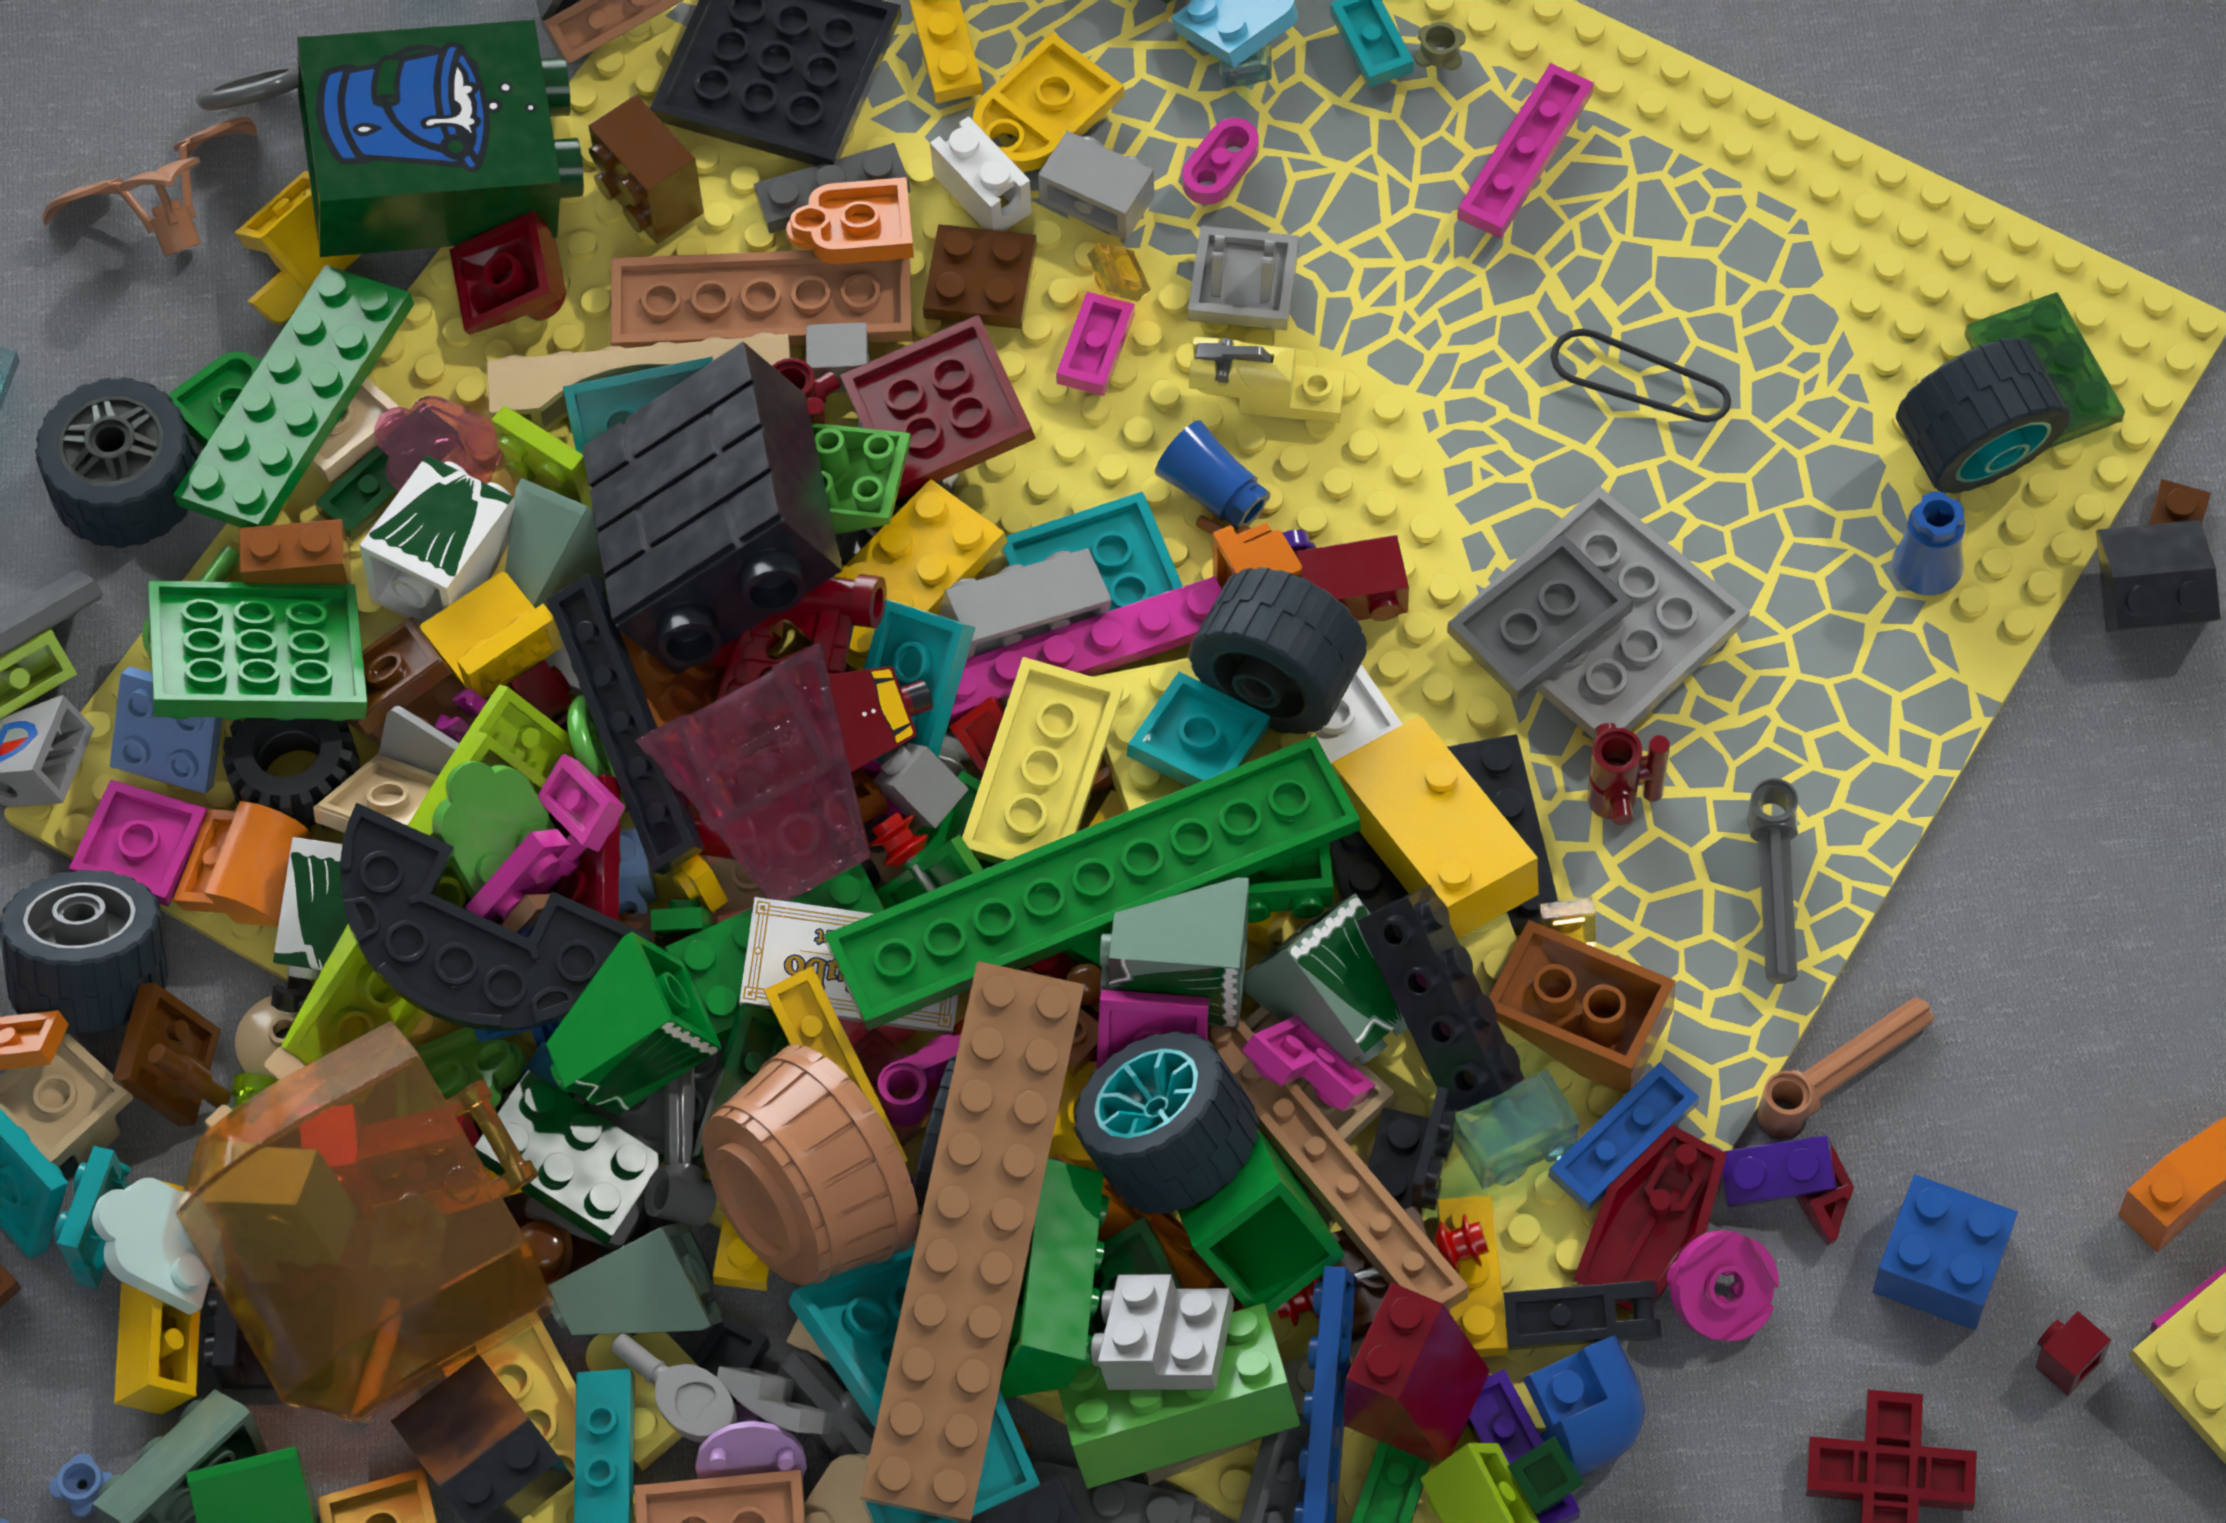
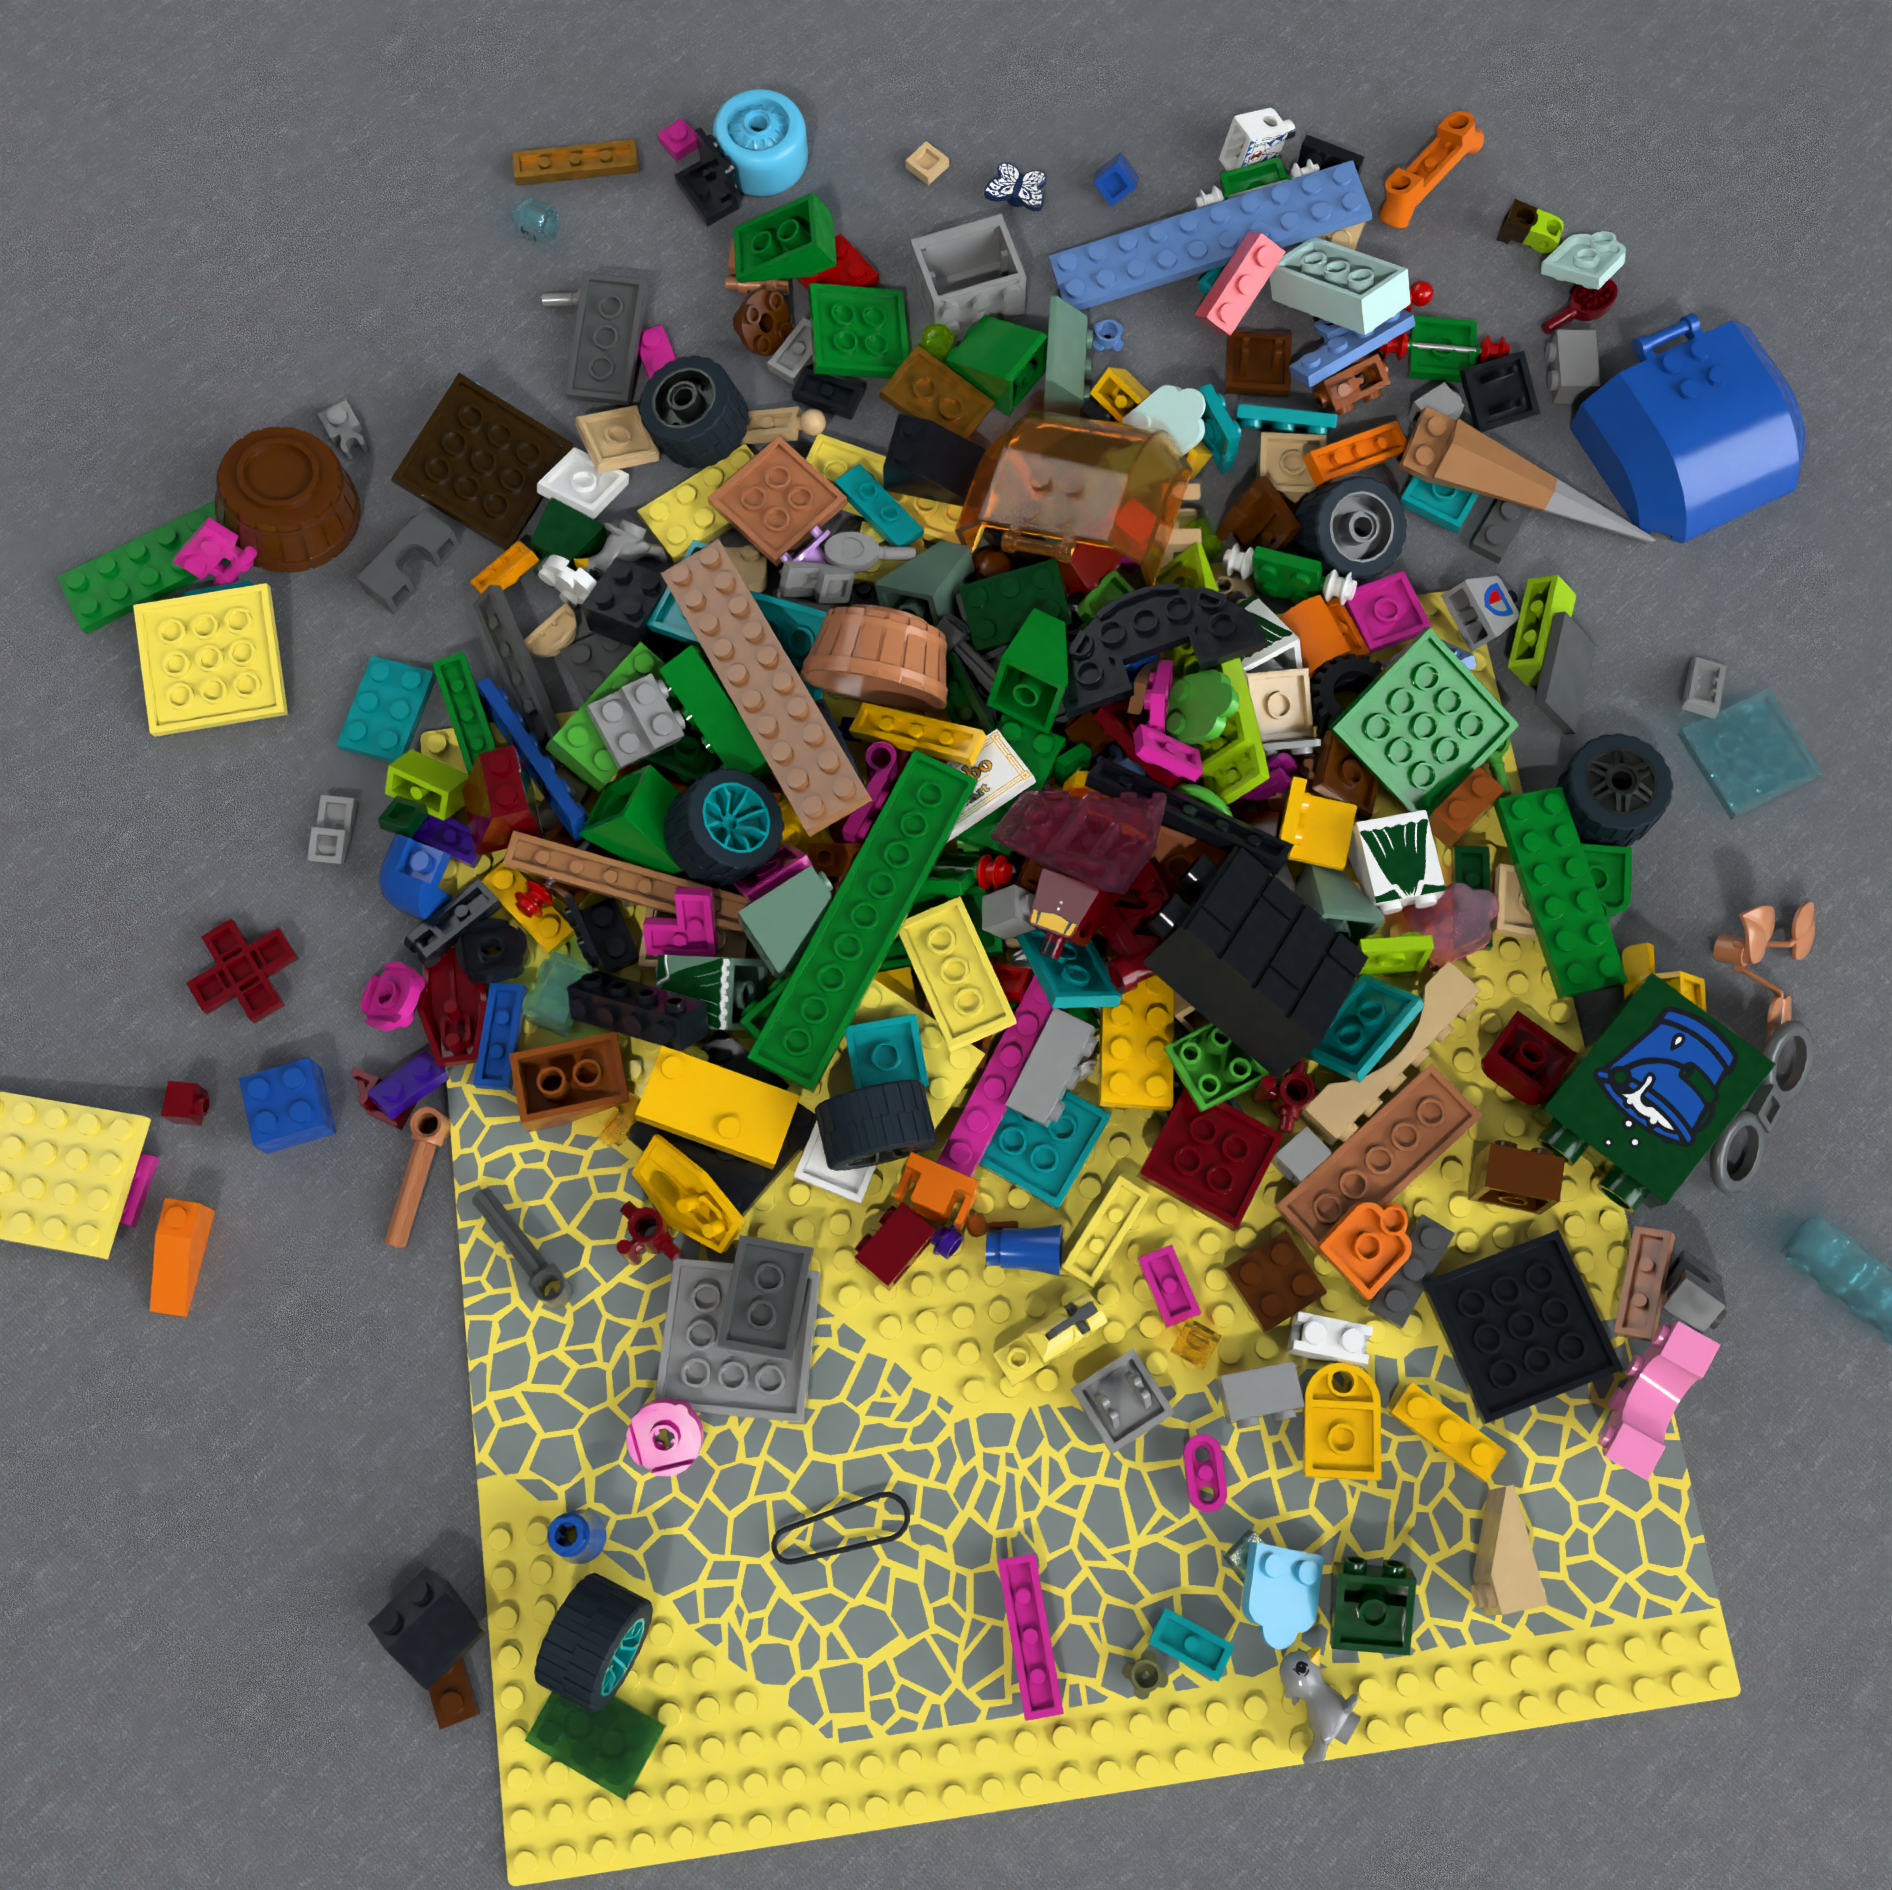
camera: 140 degrees right, 10 degrees up
(220, 970) = (1287, 575): none -> green plate
(1109, 439) = (1105, 1232): none -> light yellow plate
(1543, 790) = (687, 1196): none -> yellow piece
(1548, 1207) = (497, 967): none -> black plate
(1736, 578) = (676, 1418): none -> plate

